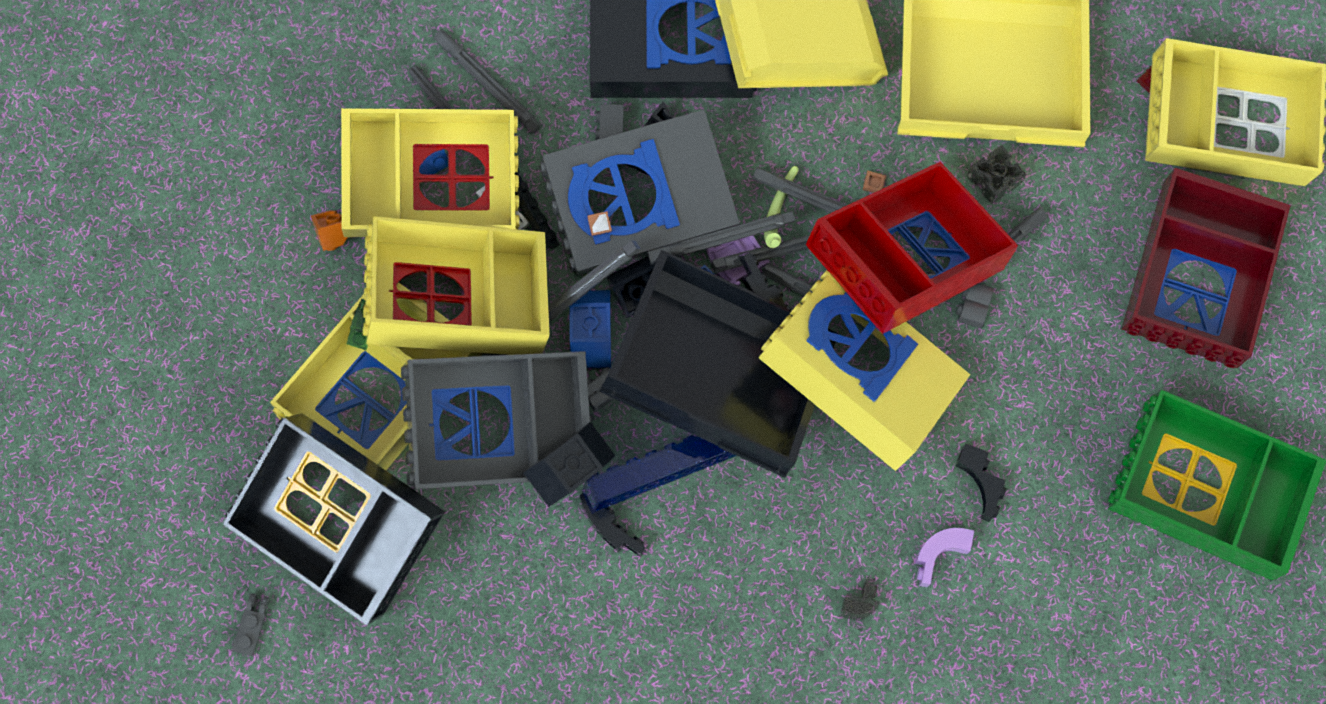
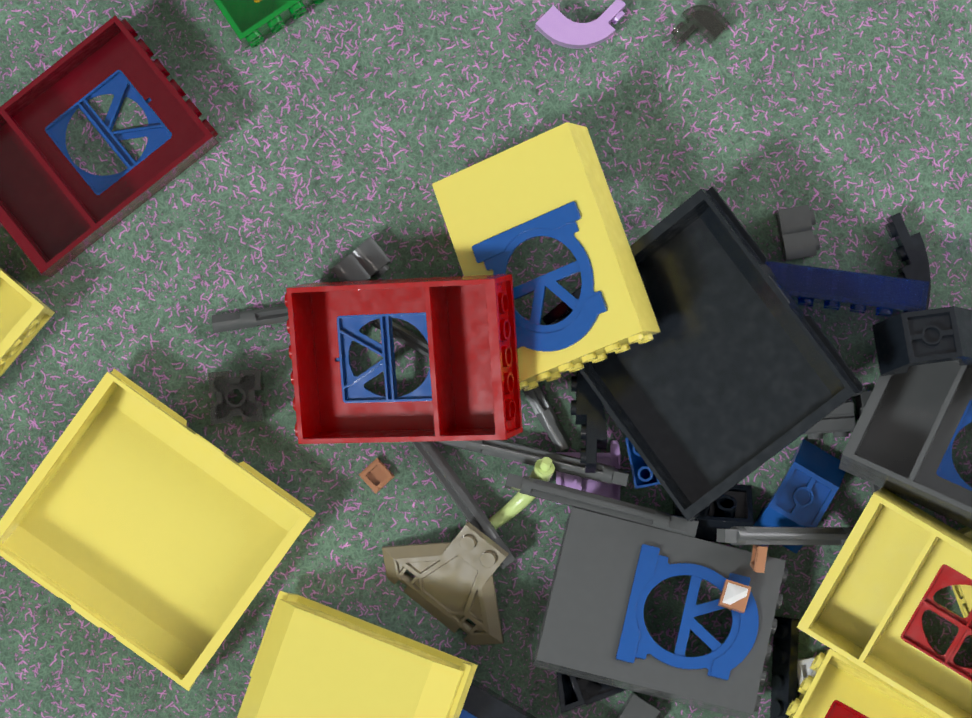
camera: 150 degrees left, 15 degrees up
(597, 254) = (758, 558): none -> nougat tile
(702, 500) = (797, 233): none -> dark grey brick
(782, 144) = (453, 581): none -> dark tan plate
(992, 488) = (482, 56): black arch -> none

